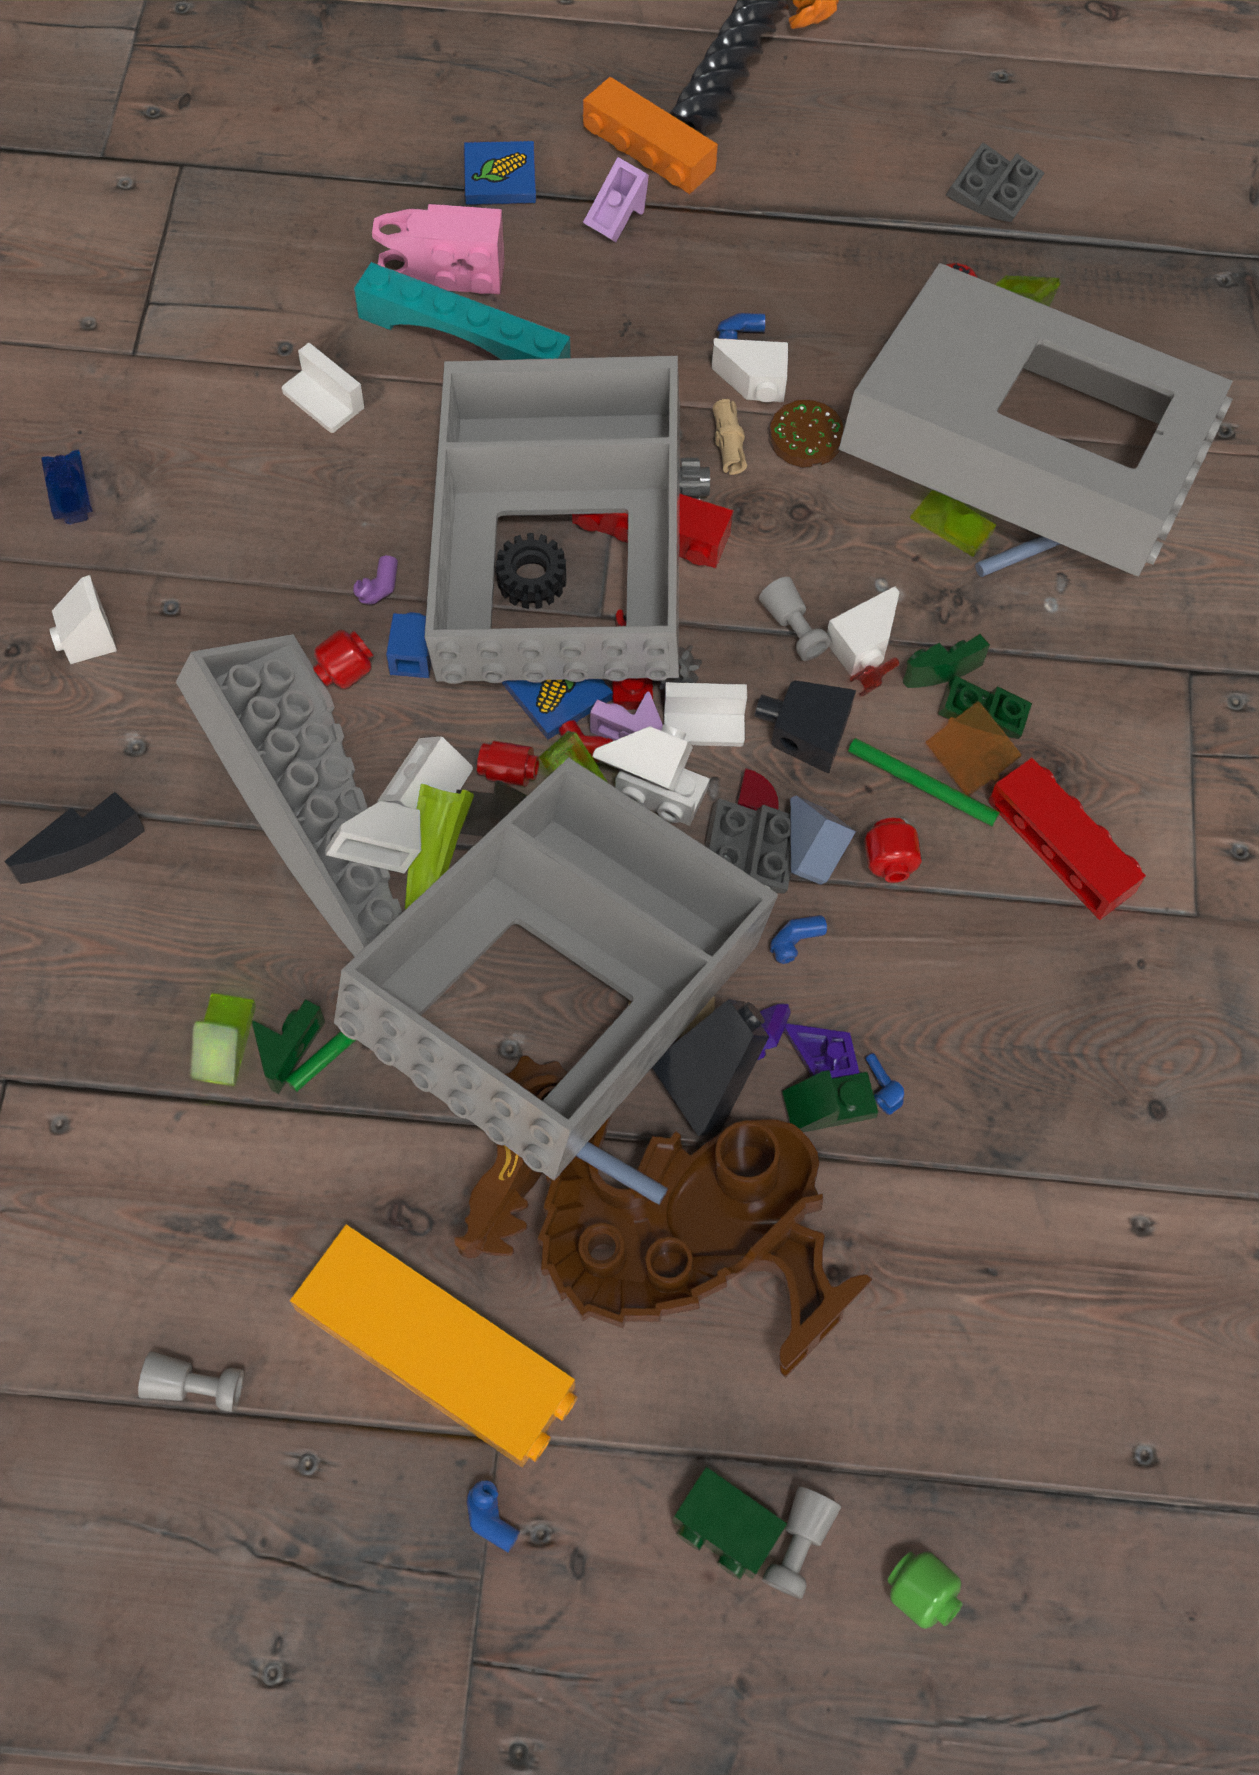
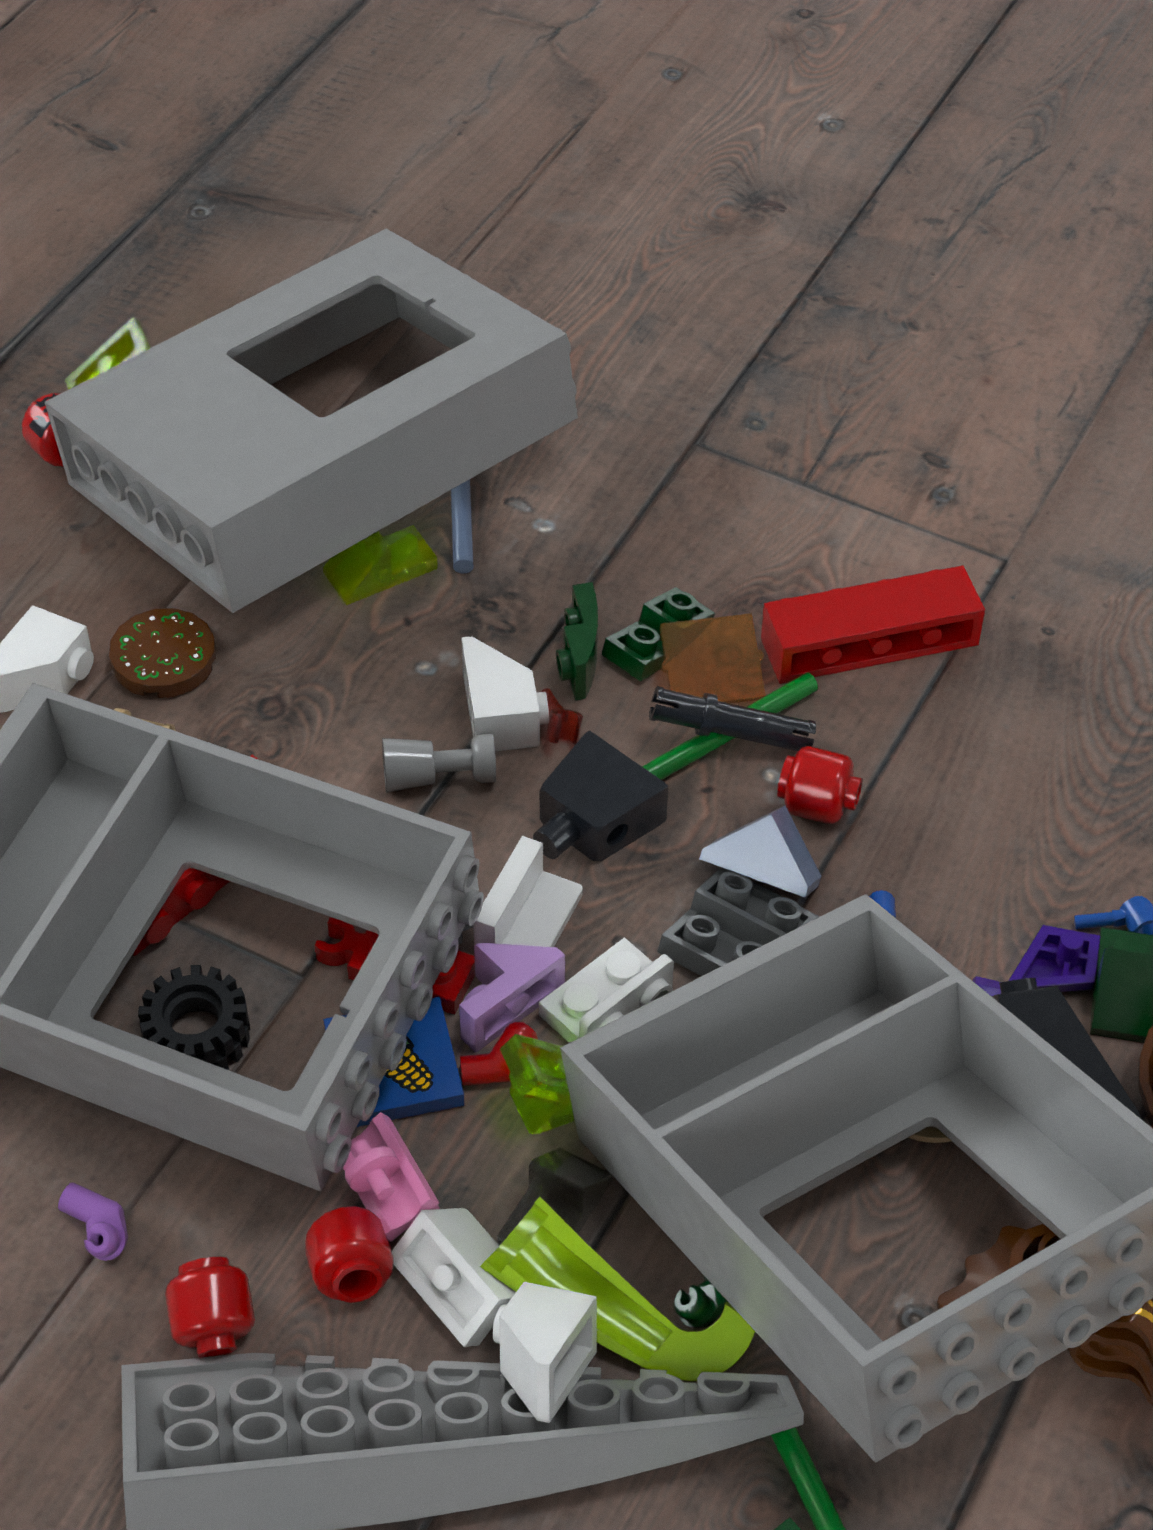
camera: 65 degrees left, 15 degrees down
(406, 715) = (349, 1254): none -> red head
(407, 646) = (235, 1208): blue brick -> none
(461, 709) = (387, 1177): none -> bright pink hips
(508, 763) = (488, 1157): red brick -> none
(649, 755) = (584, 969): white slope -> none
(757, 791) = (663, 898): dark red tile -> none
(916, 764) = (732, 720): none -> black pin

